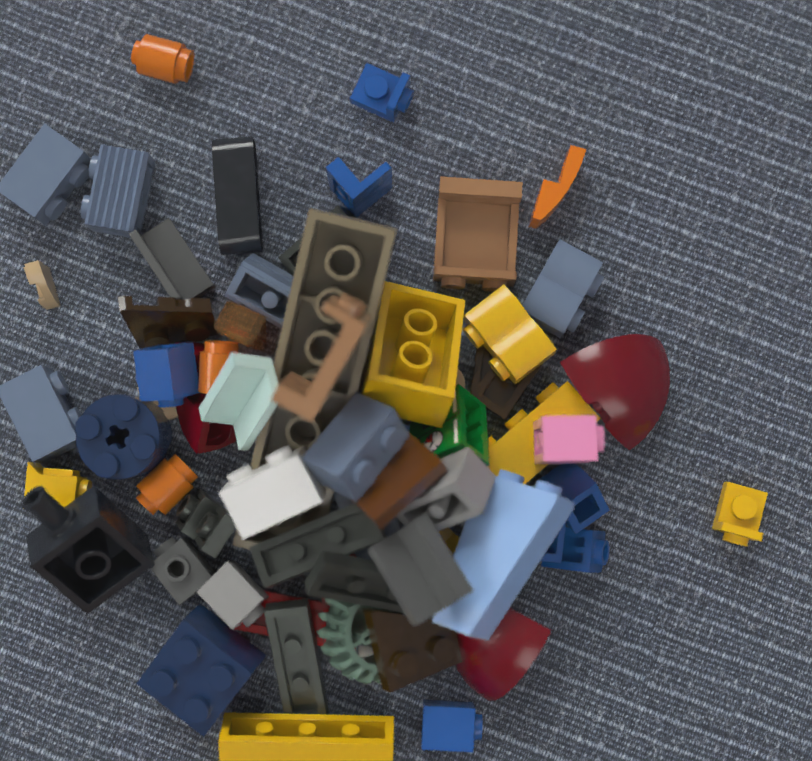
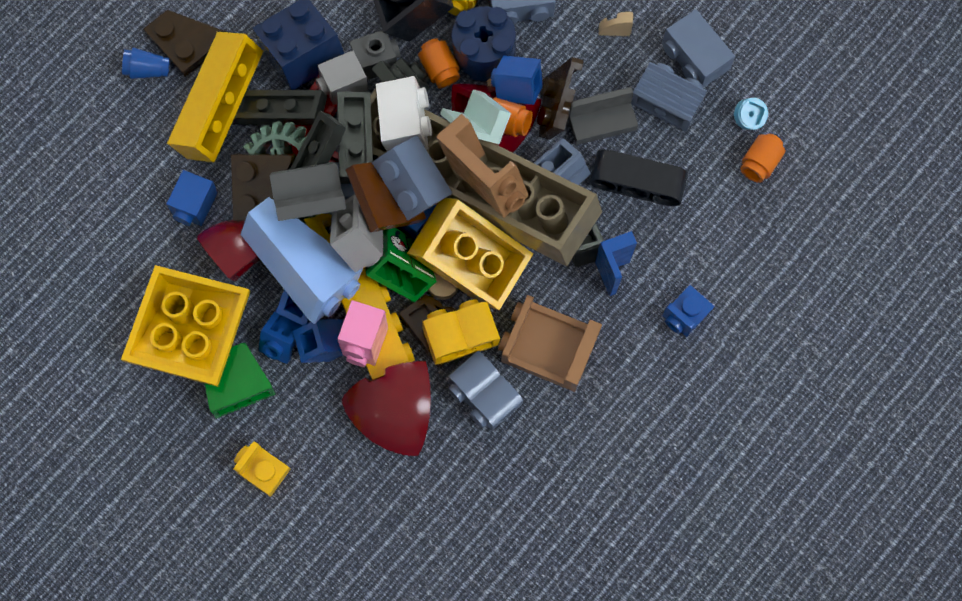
camera: 110 degrees right, 10 degrees down
(109, 90) = (751, 113): none -> medium azure tile
(242, 325) = (532, 137): clear orange slope -> none
(553, 193) = (559, 408): orange slope -> none
(620, 663) = (186, 325): none -> yellow slope
(649, 587) = (240, 383): none -> green torso

